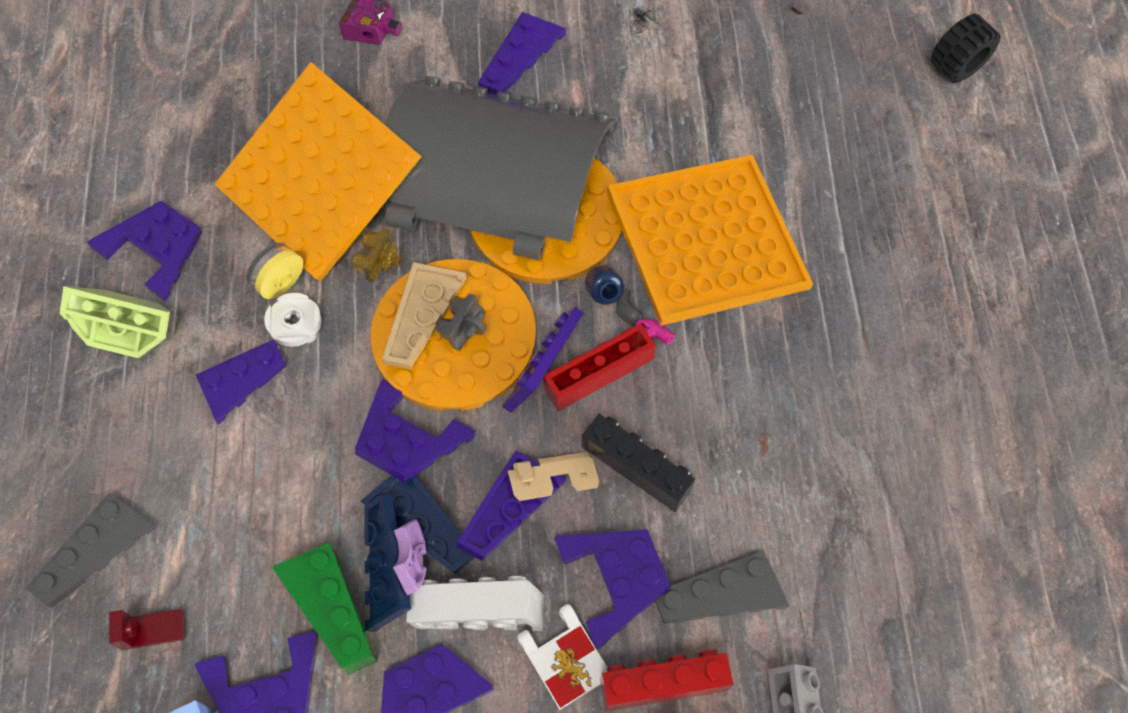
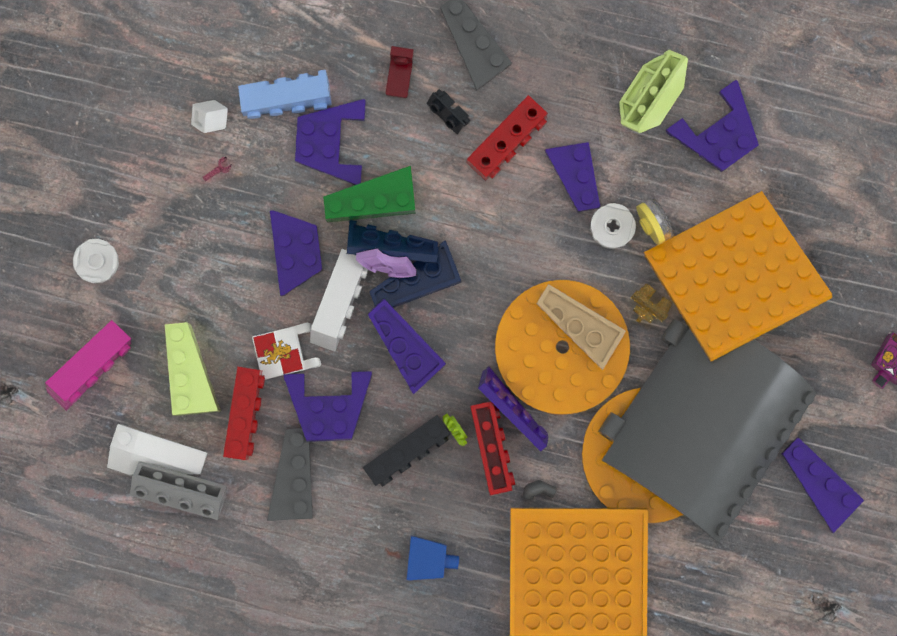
camera: 105 degrees right, 20 degrees up
(195, 546) = (441, 103): none -> black hinge
(210, 466) = (507, 137): none -> red brick
(399, 445) = (477, 278): dark purple wing -> none
(466, 322) = (559, 356): dark grey hips -> none
(539, 478) = (416, 370): tan piece -> none
(590, 410) = (455, 429): none -> lime gear
(604, 284) = (562, 477): dark blue head -> none
(656, 331) = (515, 501): dark pink arm -> none
(756, 399) = (429, 559): none -> blue torso

